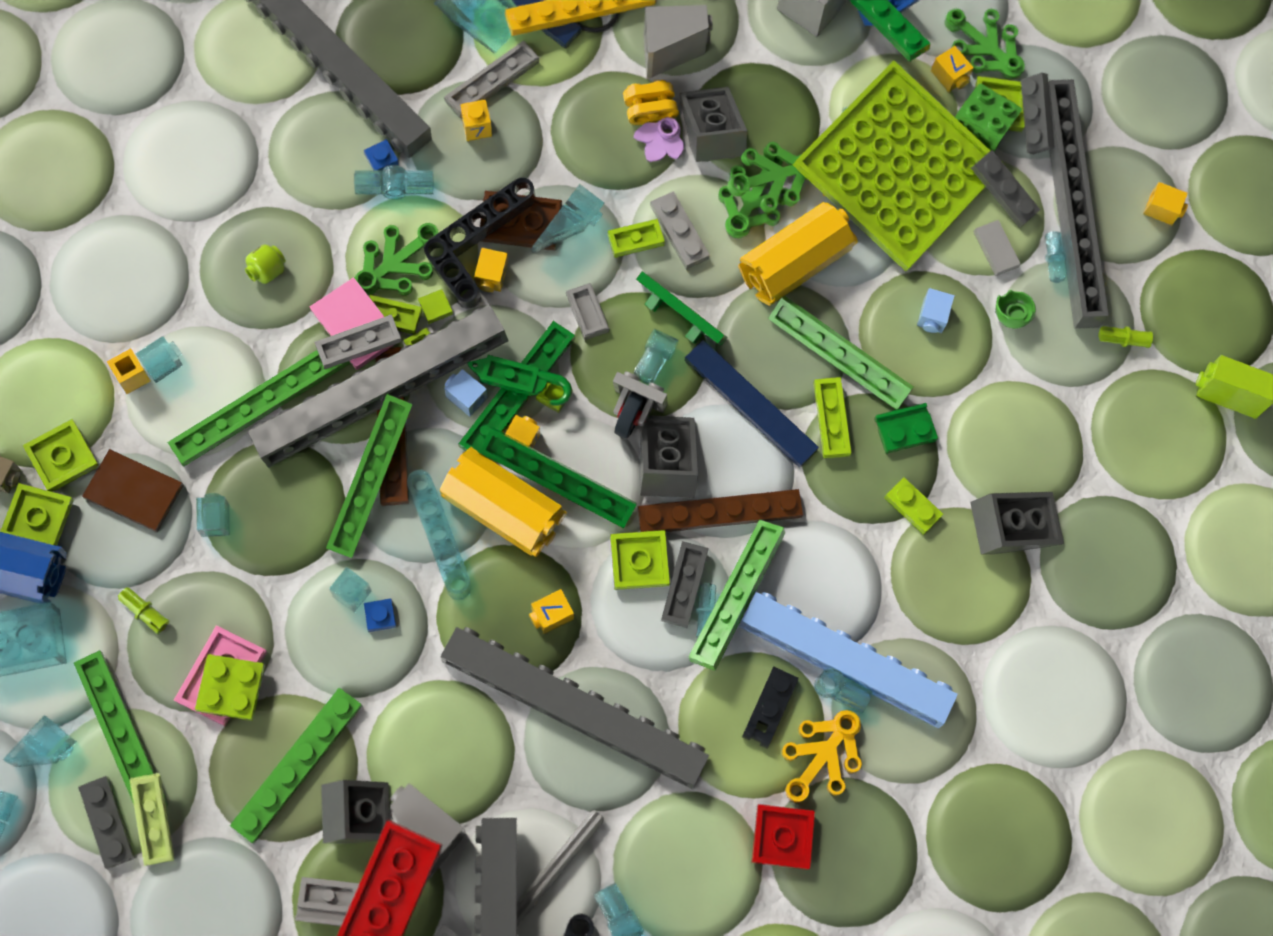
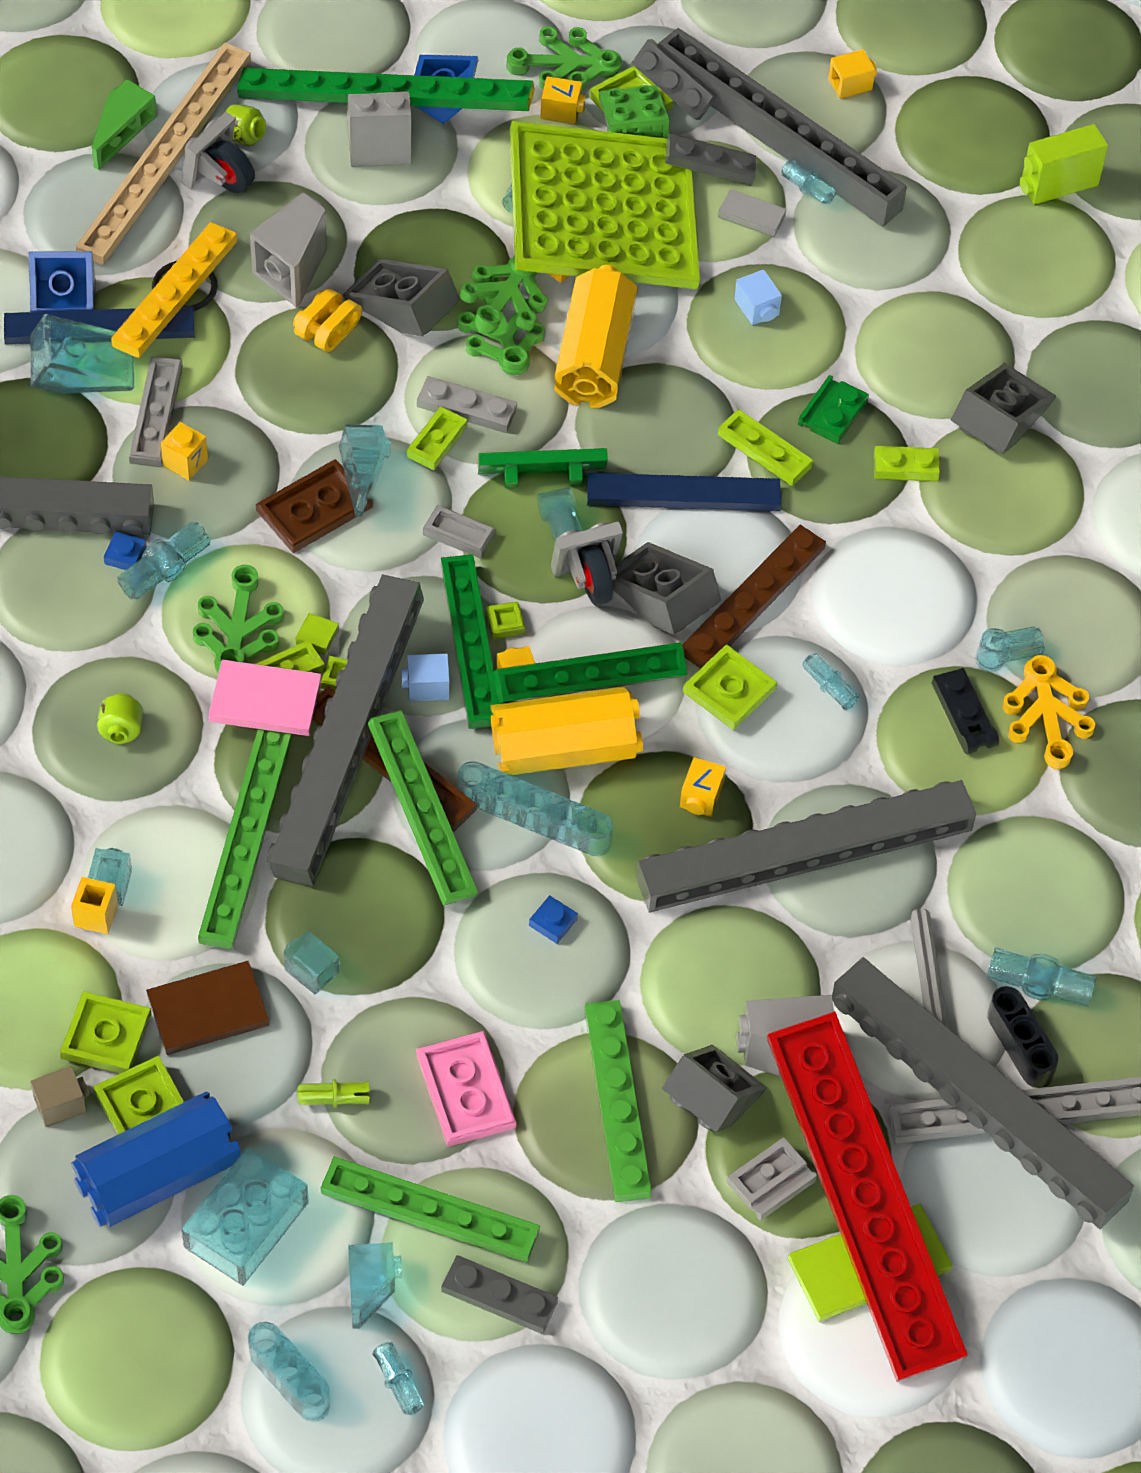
camera: 40 degrees left, 15 degrees down
(152, 819) = (543, 1247): yellowish green tile -> none
(230, 687) = (489, 1083): lime plate -> none
(350, 589) = (507, 915): clear light blue brick -> none
(358, 341) = (291, 703): light grey plate -> none
(474, 235) = (288, 542): black beam -> none
(491, 270) = (337, 561): yellow brick -> none
(518, 377) = (465, 622): green plate -> none
(658, 142) = (368, 348): lavender plate -> none
(684, 584) = (792, 676): dark grey plate -> none
(737, 595) = (844, 642): bright green plate -> none
(783, 837) = (1087, 798): red plate -> none
(840, 352) = (715, 390): bright green plate -> none
(860, 663) = (960, 625): light blue brick -> none
(1015, 309) = (822, 246): bright green hair -> none
(1125, 336) = (932, 199): lime axle -> none

